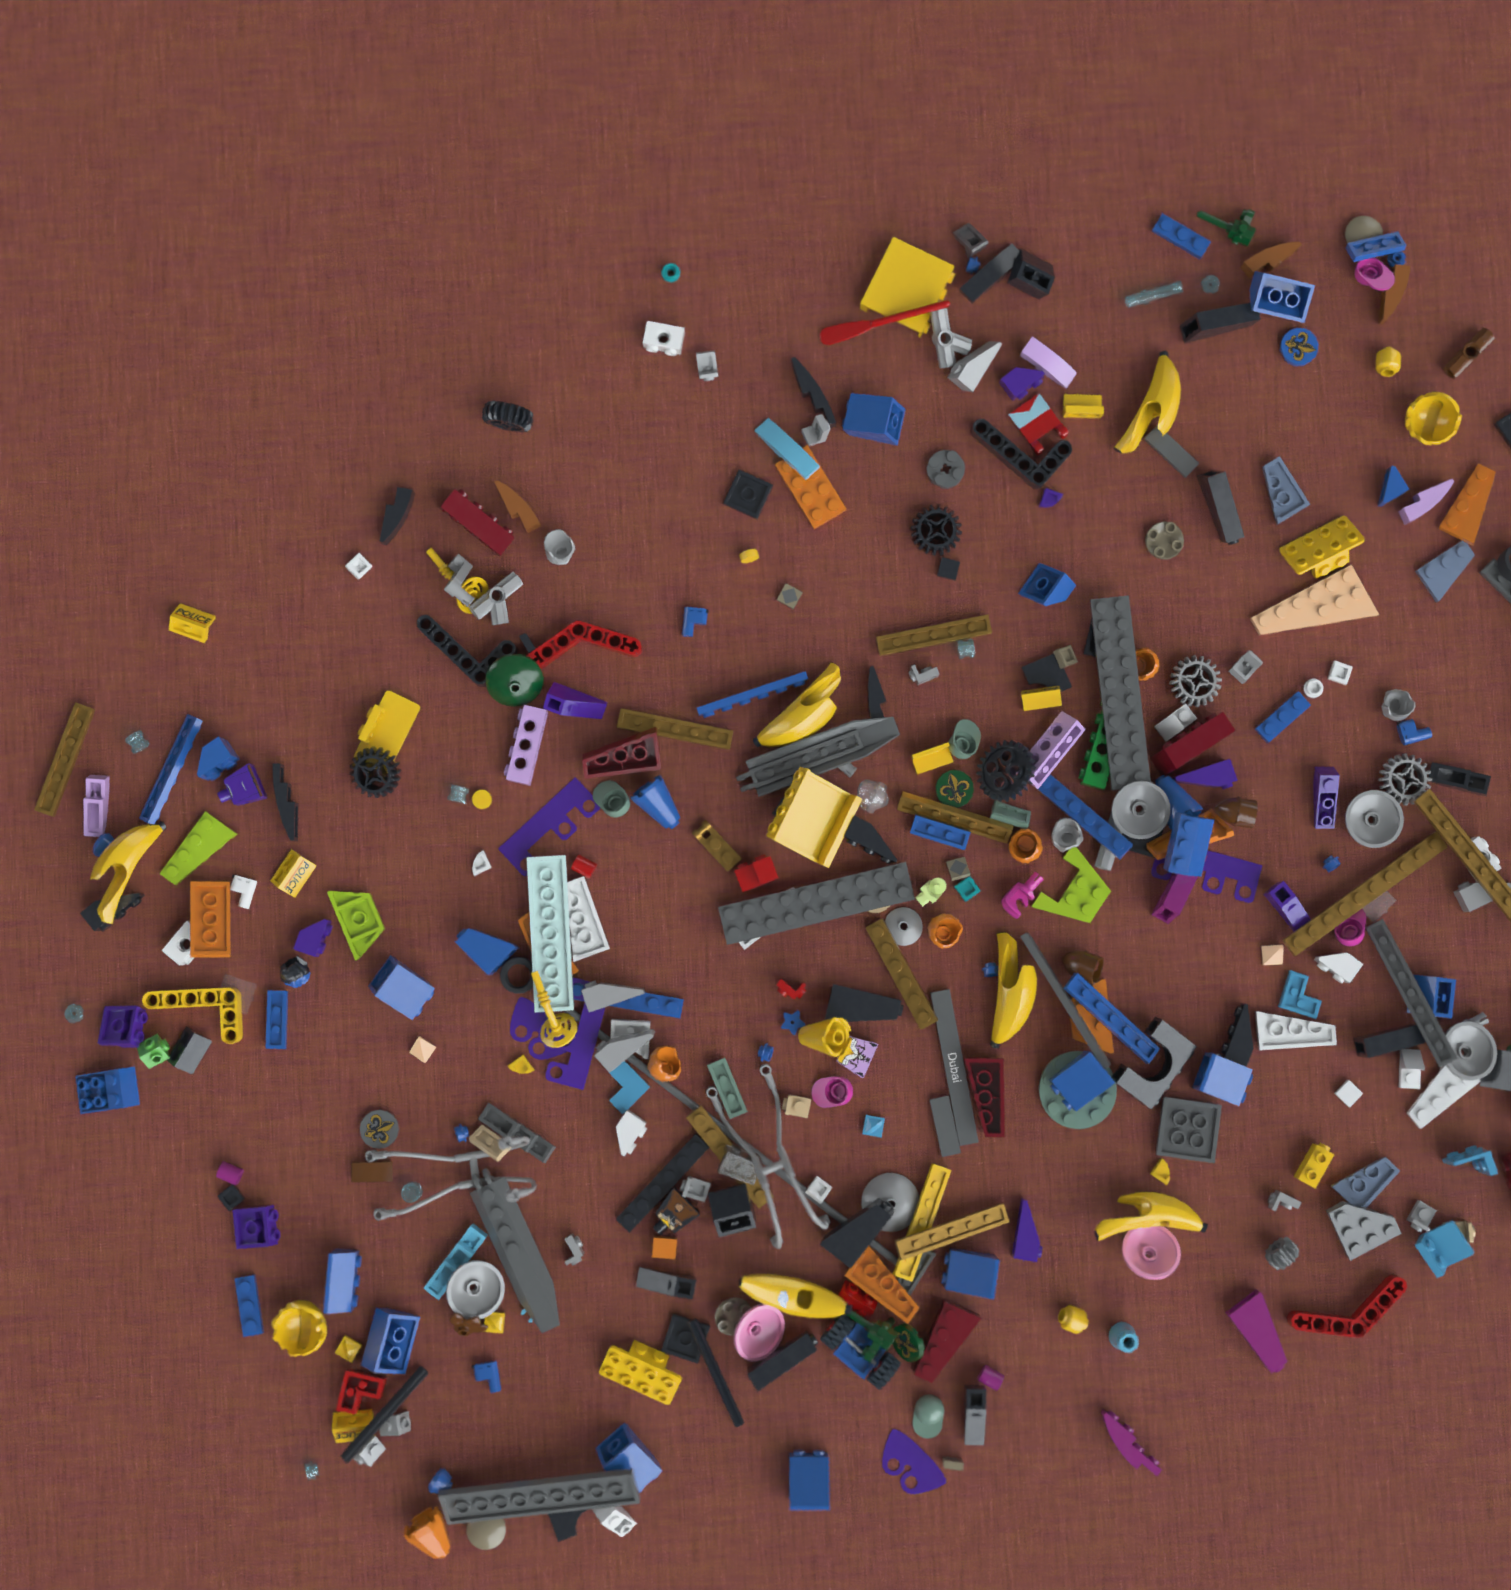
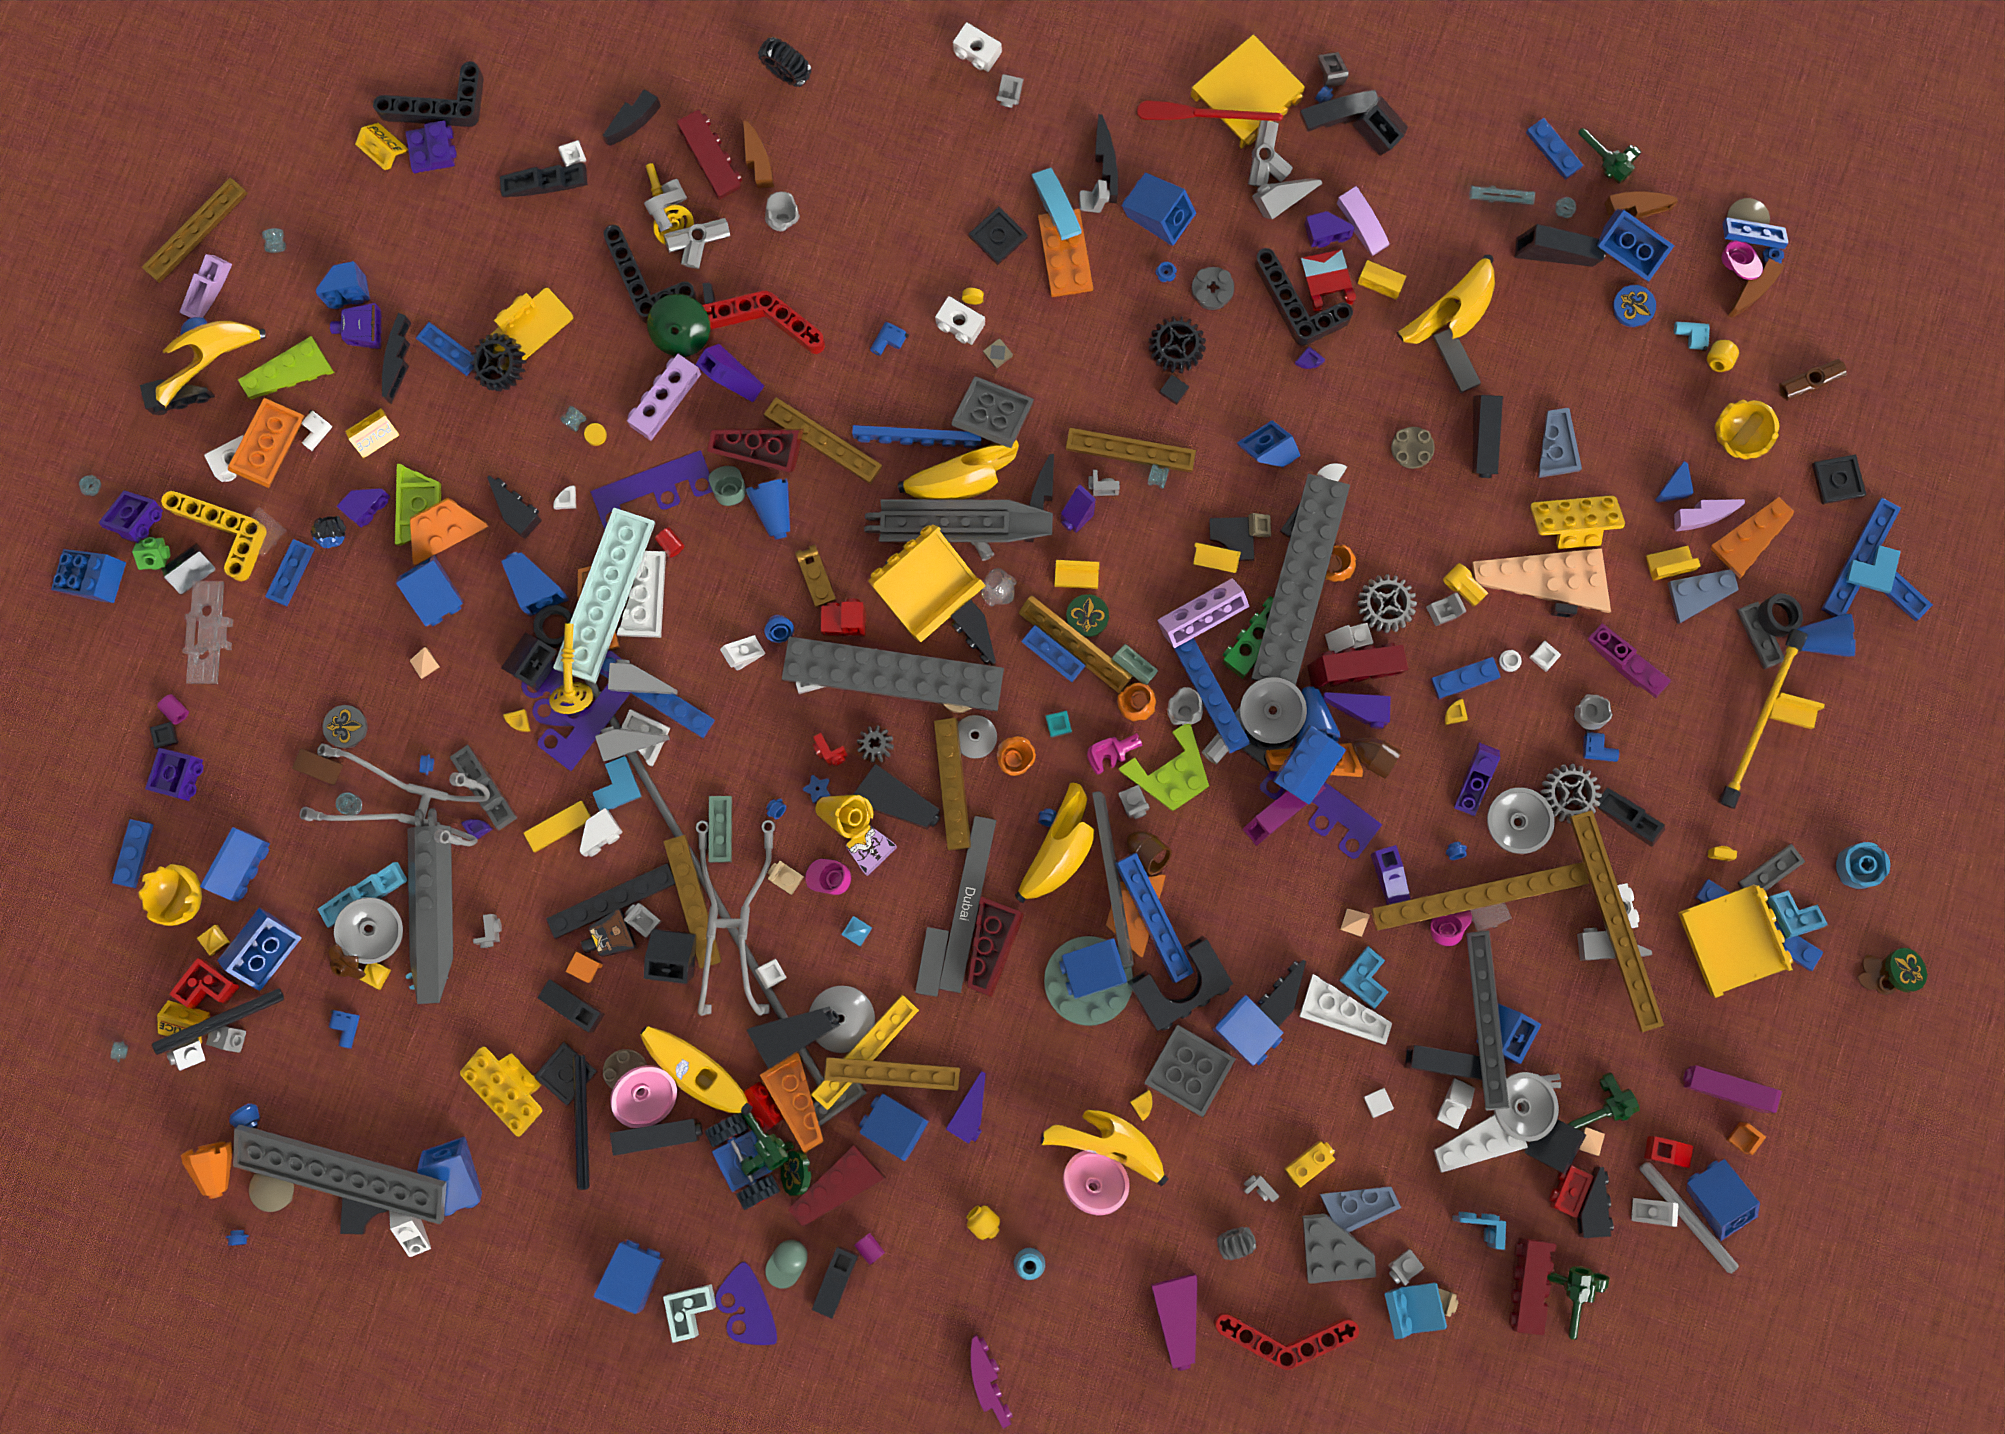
camera: 25 degrees right, 5 degrees down
(170, 770) = (290, 285): blue plate -> none
(225, 570) = (437, 106): none -> black beam
(234, 1097) = (211, 632): none -> clear piece
(235, 607) = (431, 147): none -> dark purple plate
(324, 775) = (446, 348): none -> blue tile
(344, 598) = (542, 181): none -> black slope
(388, 931) = (441, 528): none -> orange wing
(443, 893) = (516, 514): none -> black slope
(476, 1580) = (237, 1238): none -> blue plate
(488, 1142) = (451, 793): tan plate -> none
(511, 1013) = (531, 661): none -> black slope
(525, 1168) = (476, 827): none -> dark purple tile
(592, 1139) = (557, 826): none -> yellow tile
(664, 1064) = (665, 776): orange hair -> none
(684, 934) = (742, 652): none -> white slope
(705, 903) = (778, 629): none -> blue cone
(738, 574) = (955, 310): none -> white brick
(738, 1164) = (694, 910): clear smoke bracket -> none
(808, 650) = (992, 412): none -> dark grey plate
(821, 961) = (875, 736): none -> dark grey gear
(862, 1486) = (682, 1309): none -> light aqua brick
(896, 470) = (1166, 266): none -> blue plate
(913, 706) = (1078, 510): none -> dark purple slope
(931, 891) = (1018, 708): yellowish green hips -> none
(952, 1463) = (790, 1324): dark tan tile -> none
(958, 868) = (1057, 698): dark tan tile -> none
(964, 739) = (1118, 568): sand green cap -> none
(991, 780) = (1133, 616): black gear -> none
(1055, 928) = (1134, 802): none -> light grey bracket
(1107, 588) = (1332, 471): none -> white tile
(1249, 638) = (1461, 581): none -> yellow piece
(1286, 749) = (1456, 713): none -> yellow tile
(1341, 629) = (1564, 610): none -> black tile
(1341, 965) = (1423, 961): white slope -> none
(1360, 351) = (1697, 334): none -> medium azure piece
(1409, 651) = (1627, 661): none -> magenta slope
(1412, 553) = (1671, 563): none -> yellow panel

